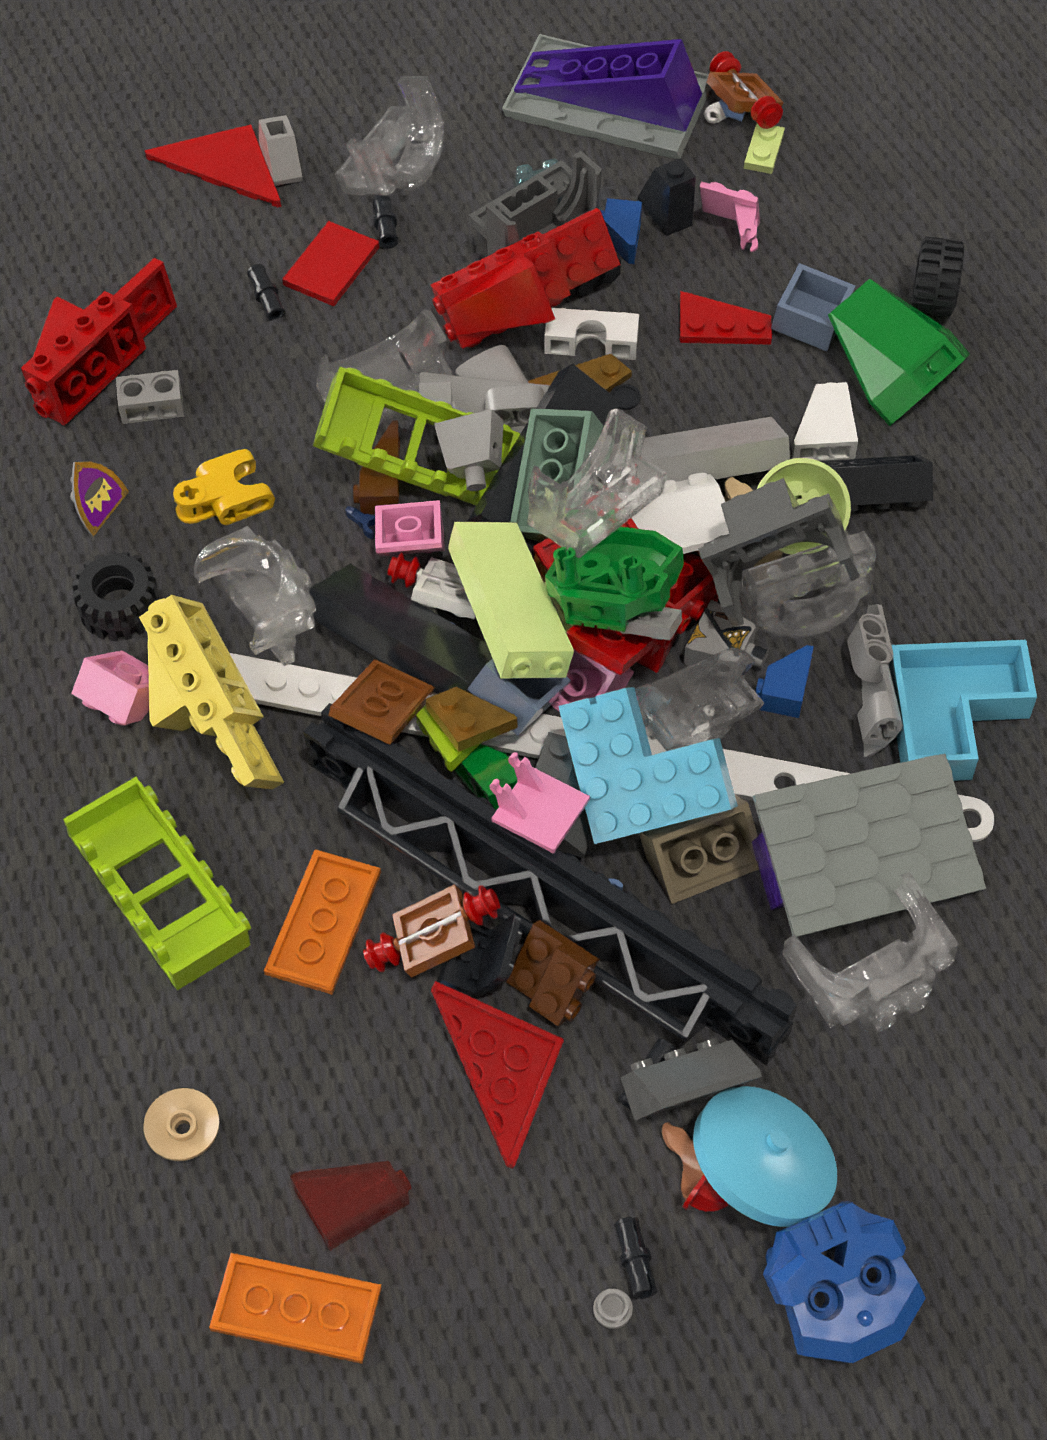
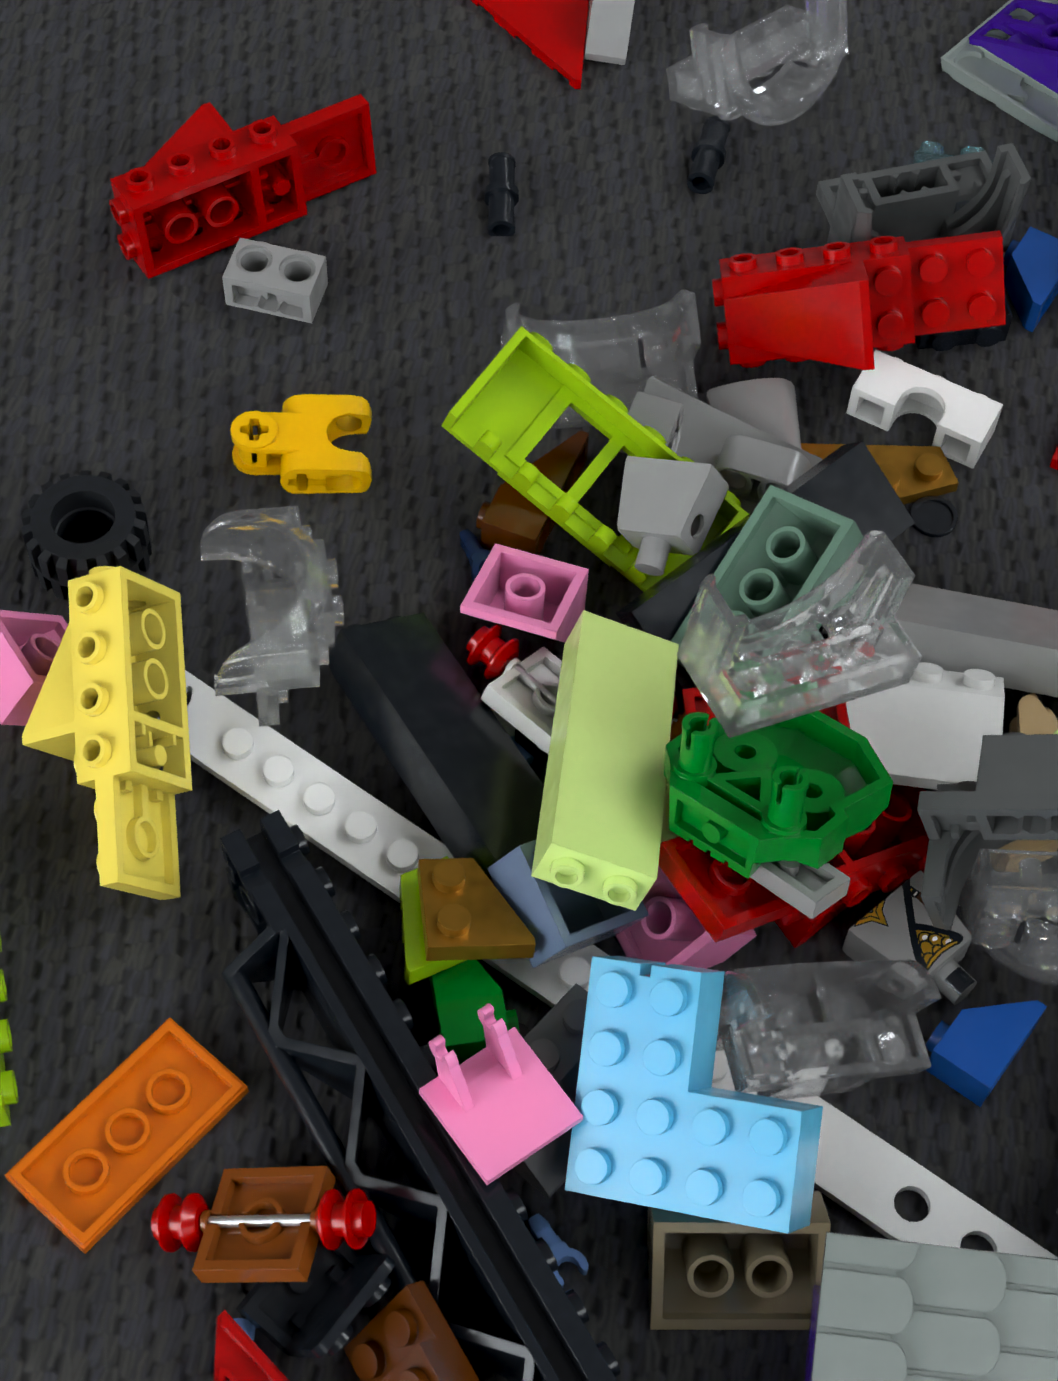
camera: 20 degrees right, 0 degrees up
(95, 493) = (132, 384): shield -> none
(331, 263) = (608, 186): red tile -> none
(381, 701) = (356, 837): dark orange tile -> none

